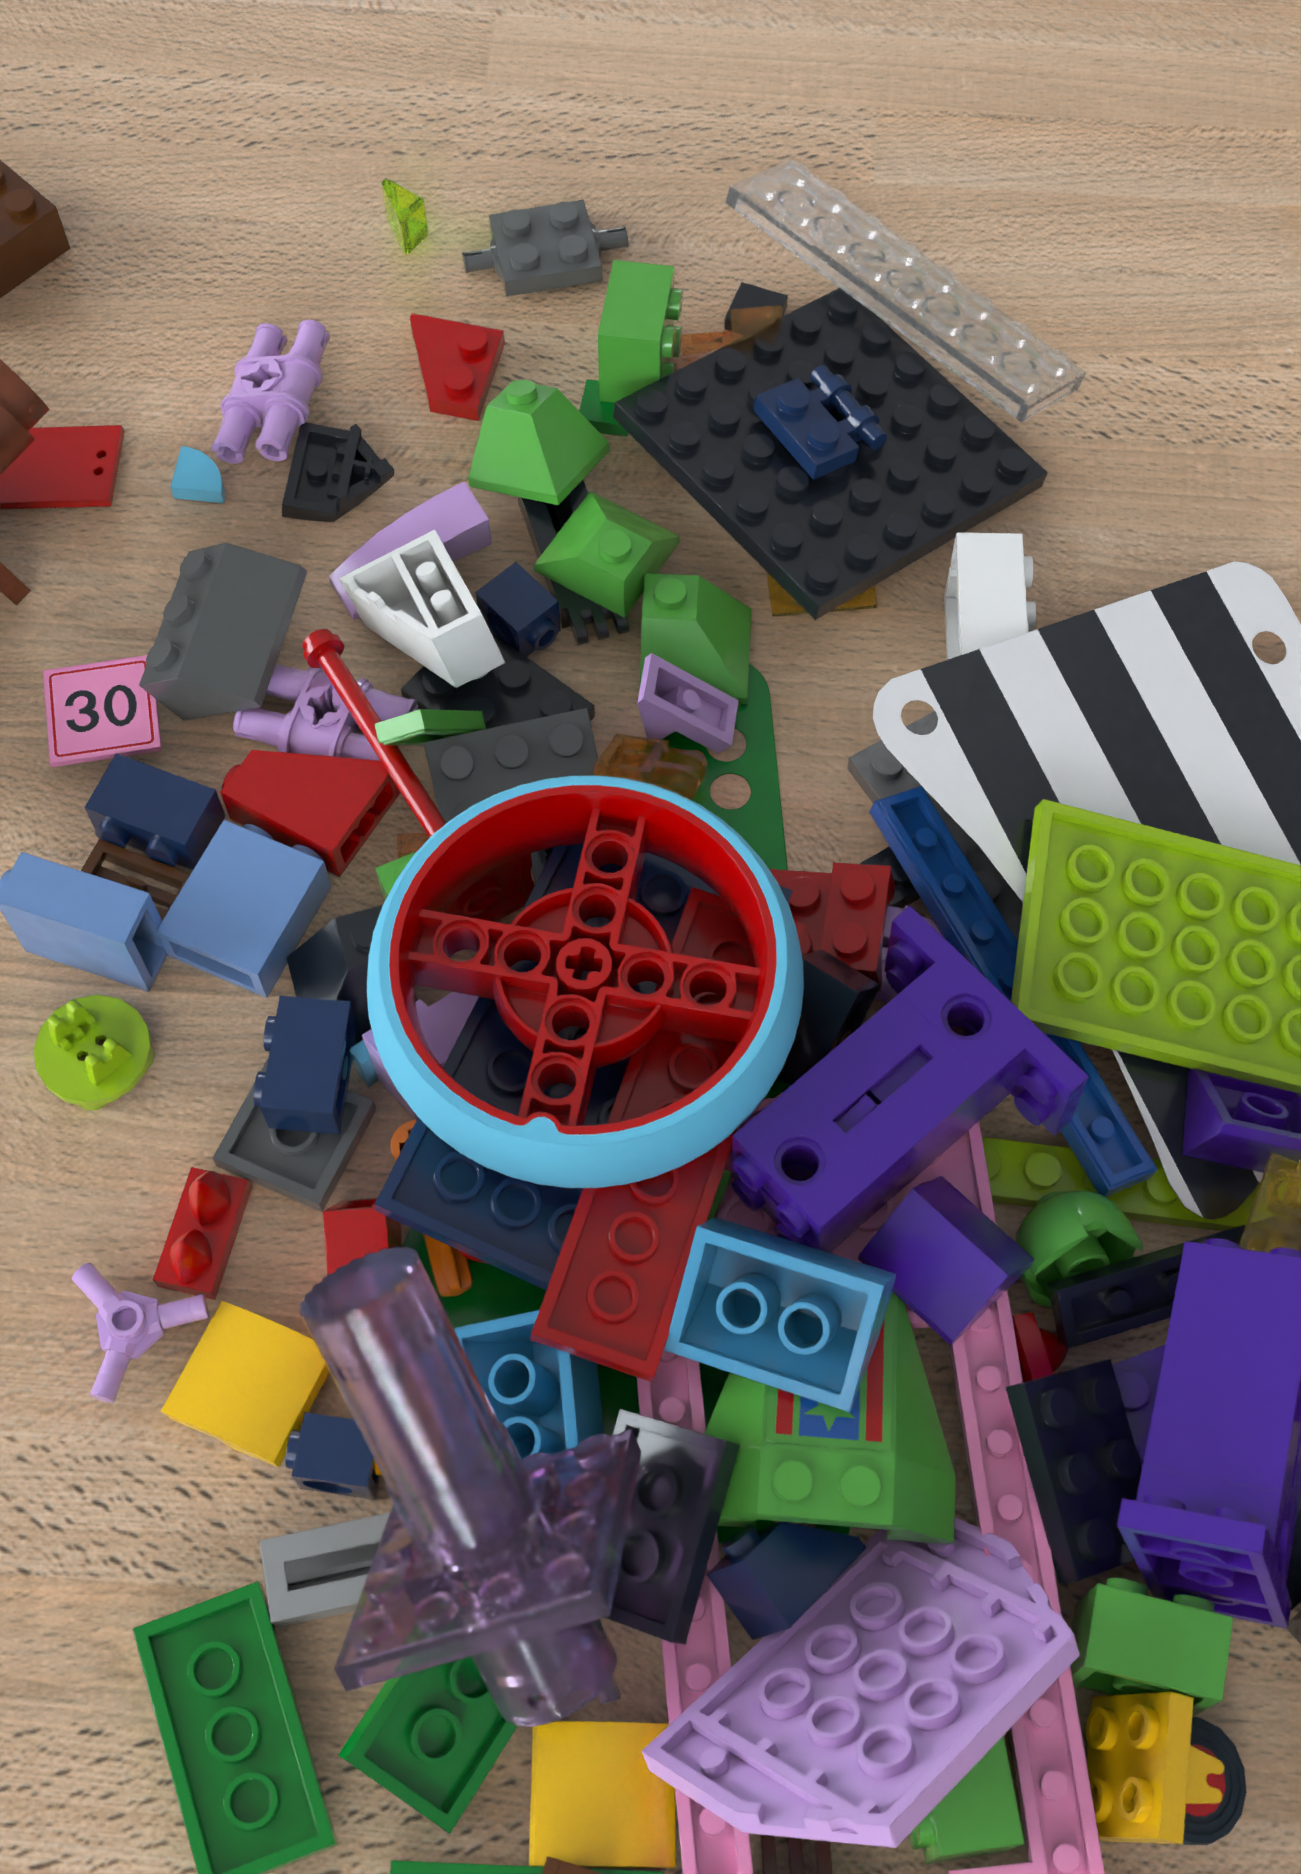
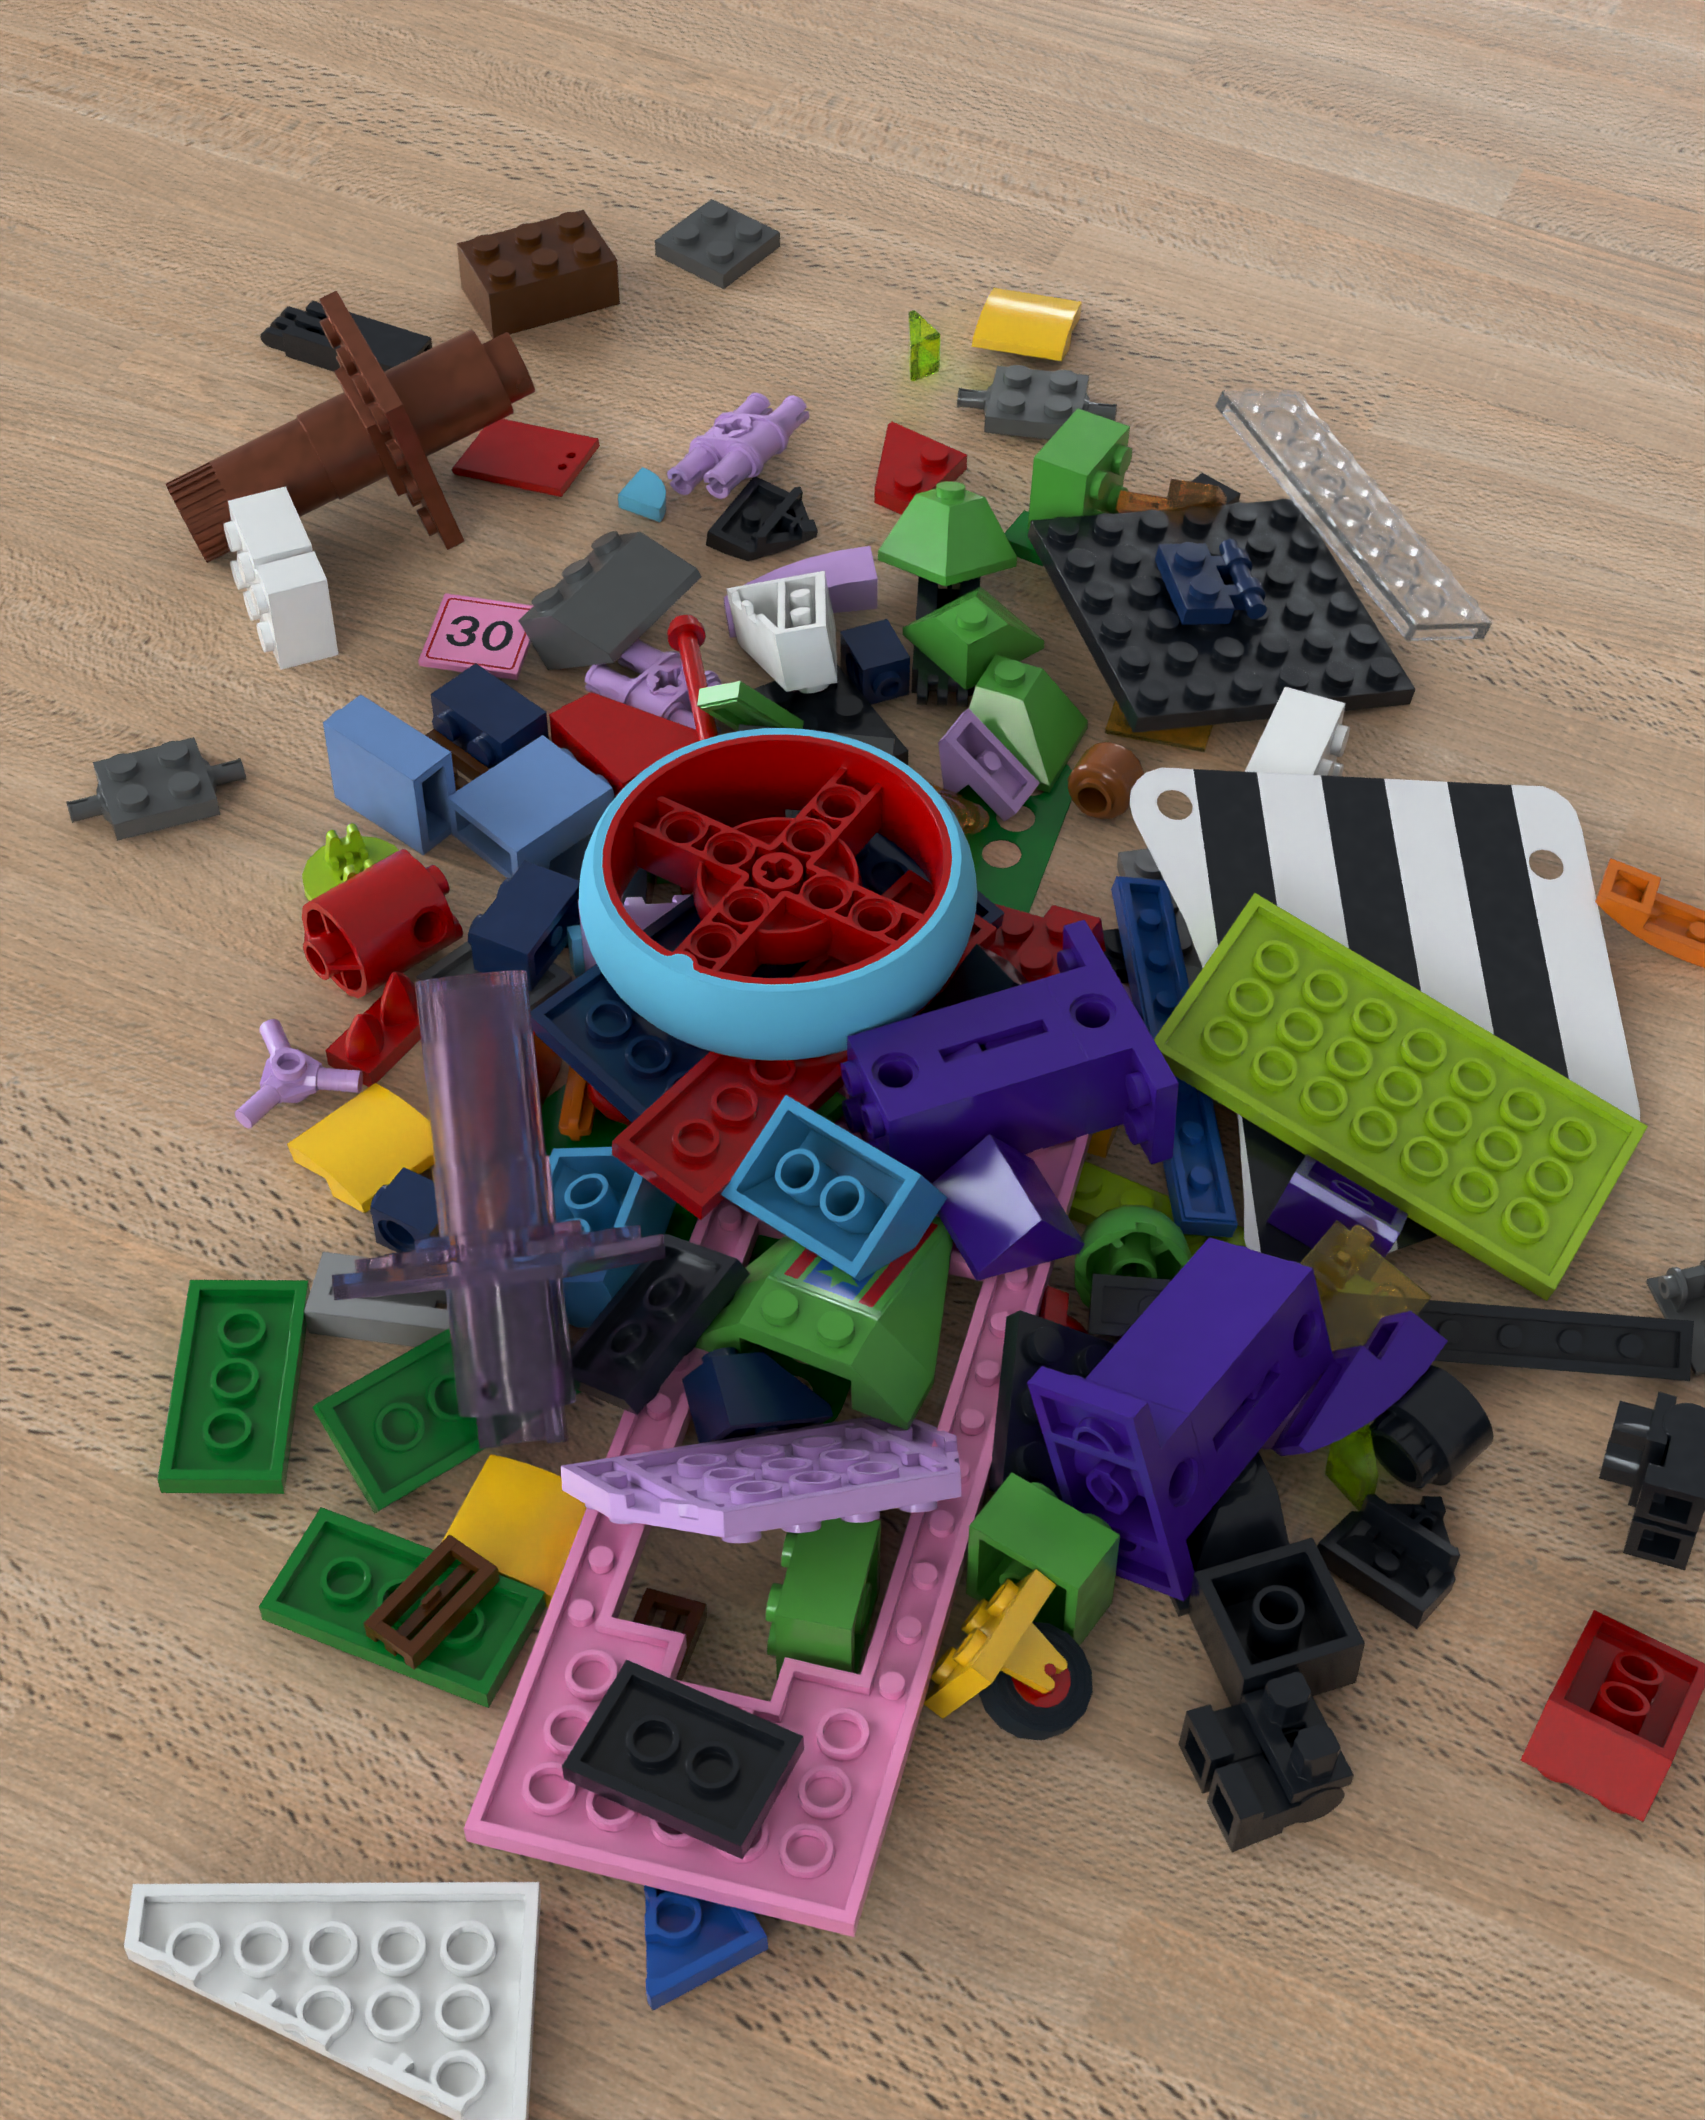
camera: 20 degrees right, 15 degrees down
(142, 147) = (717, 243): none -> dark grey plate
(149, 1115) = (379, 923): none -> red cylinder
(497, 156) = (1027, 324): none -> yellow slope
(805, 680) = (1104, 780): none -> dark orange head

